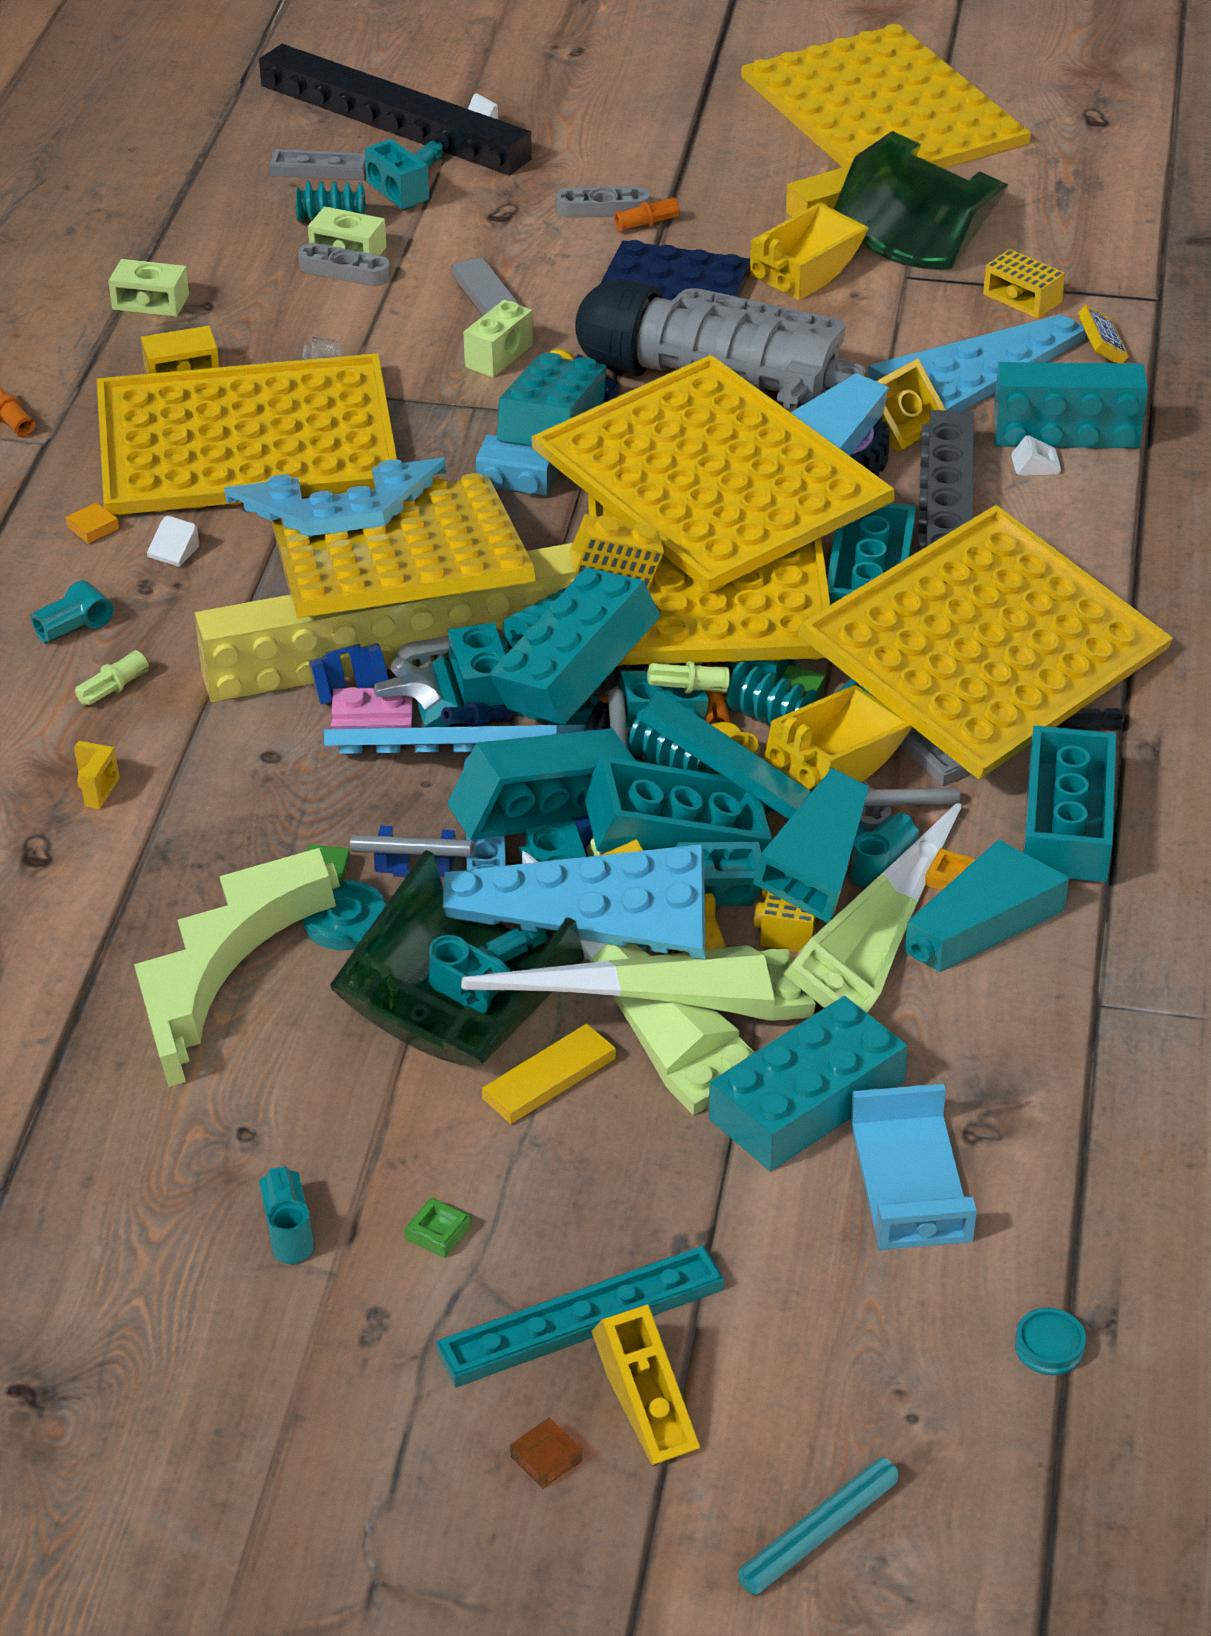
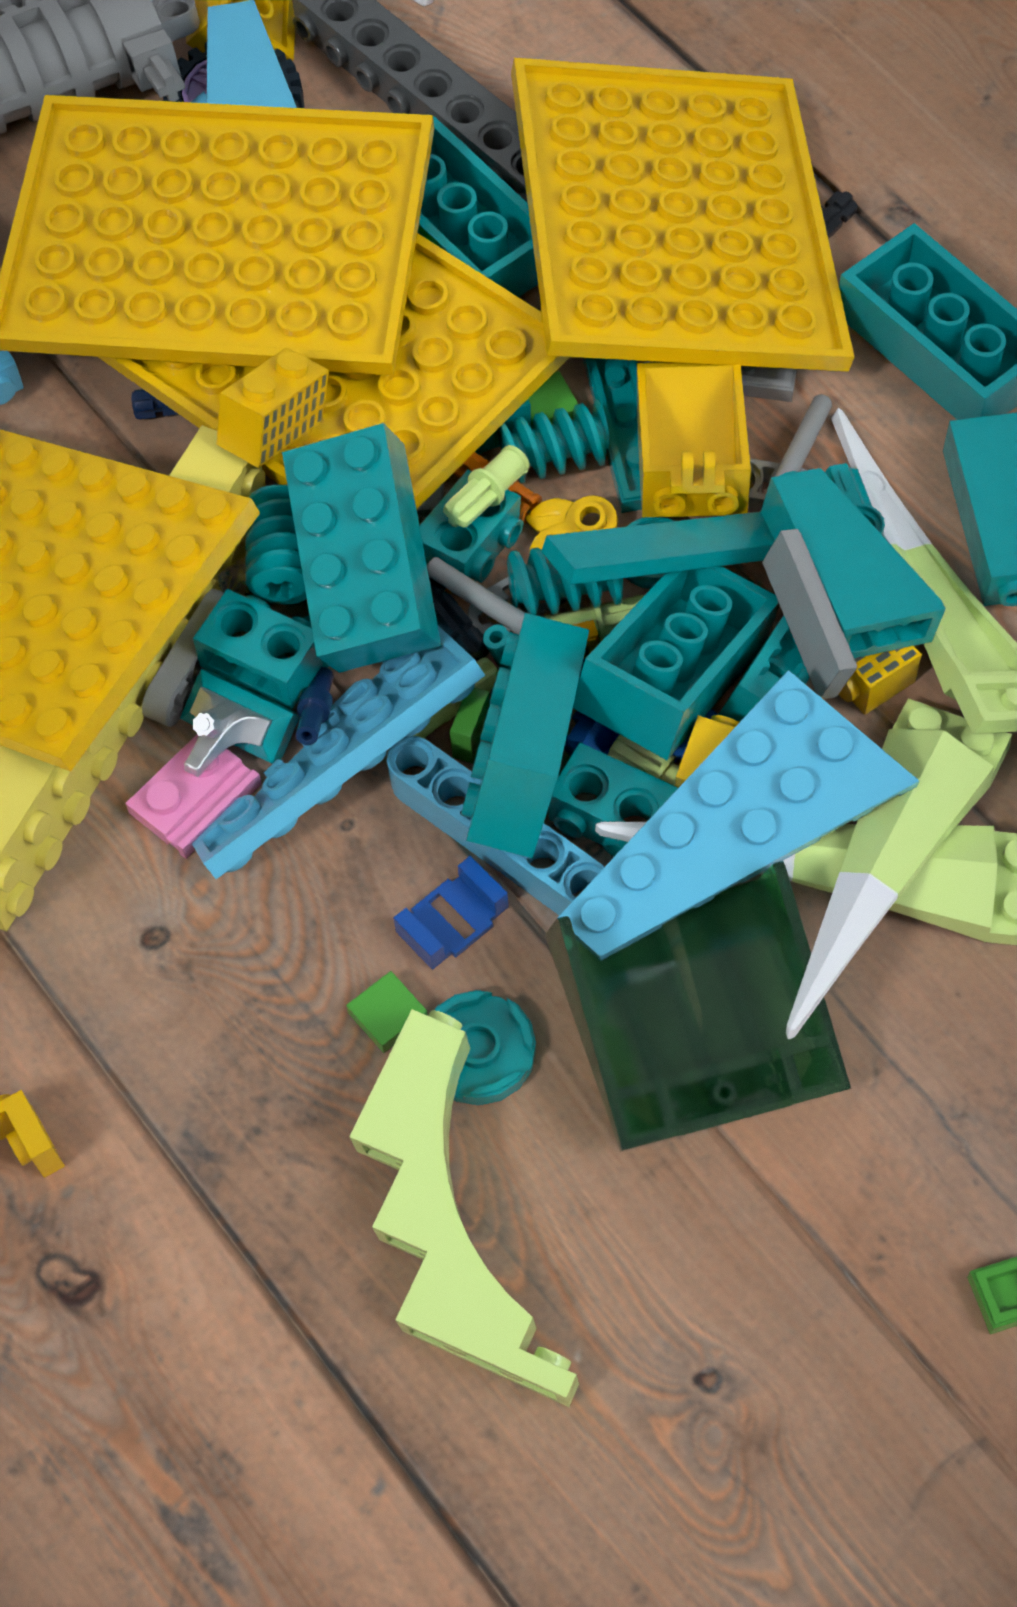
camera: 45 degrees left, 20 degrees up
(286, 1215) = (876, 1427): teal piece -> none
(366, 664) = (137, 746): blue piece -> none
(412, 846) = (471, 914): light grey piece -> none
(451, 961) = (717, 1004): teal piece -> none
(514, 943) = (685, 950): teal axle -> none
(548, 1073) = (884, 1033): yellow tile -> none
(747, 860) = (809, 614): none -> light grey tile
(946, 868) = (922, 486): light orange tile -> none

